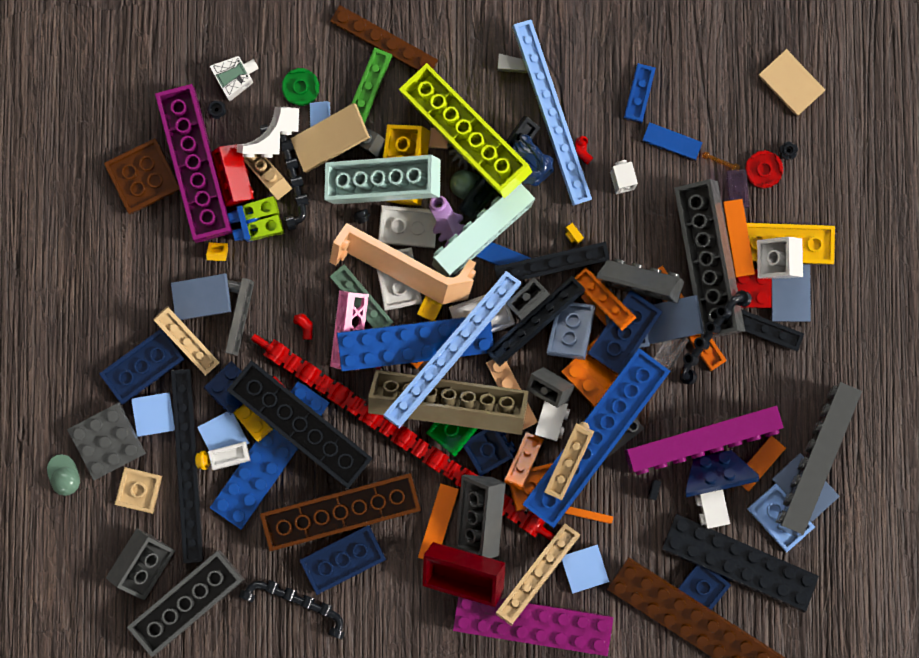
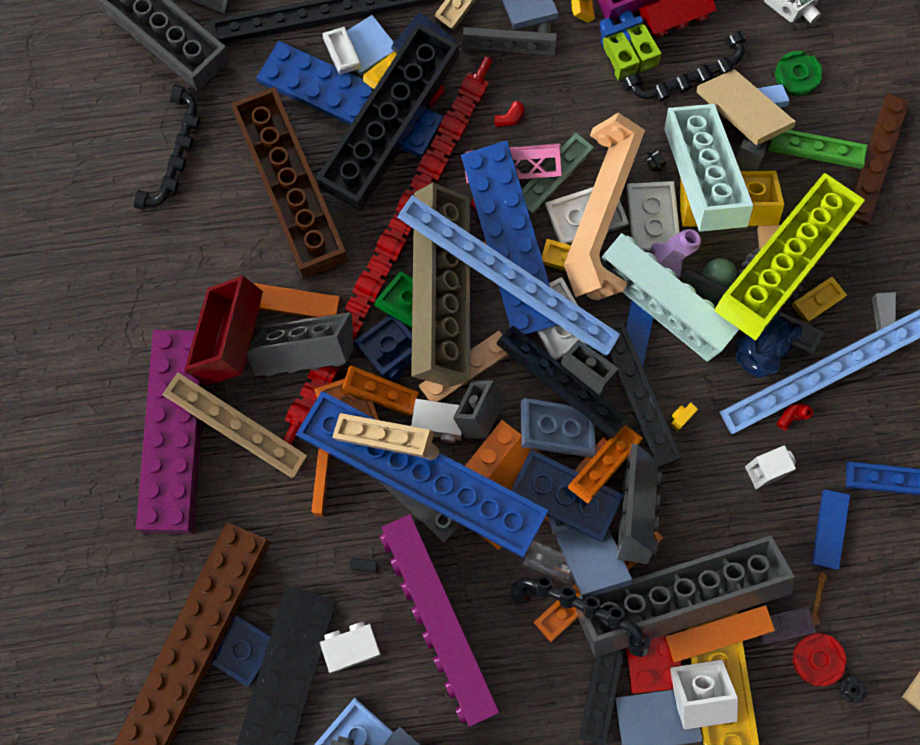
camera: 80 degrees right, 10 degrees down
(202, 460) = (332, 22): yellow plate -> none
(268, 175) = (687, 47): tan slope -> none
(283, 122) = (753, 52): white arch -> none
(342, 560) = (232, 195): dark blue plate -> none
(495, 112) = (819, 300): none -> yellow plate
(585, 569) = (250, 490): light blue tile -> none
(718, 472) = (396, 648): dark blue wing -> none
(764, 458) = (418, 706): orange tile -> none

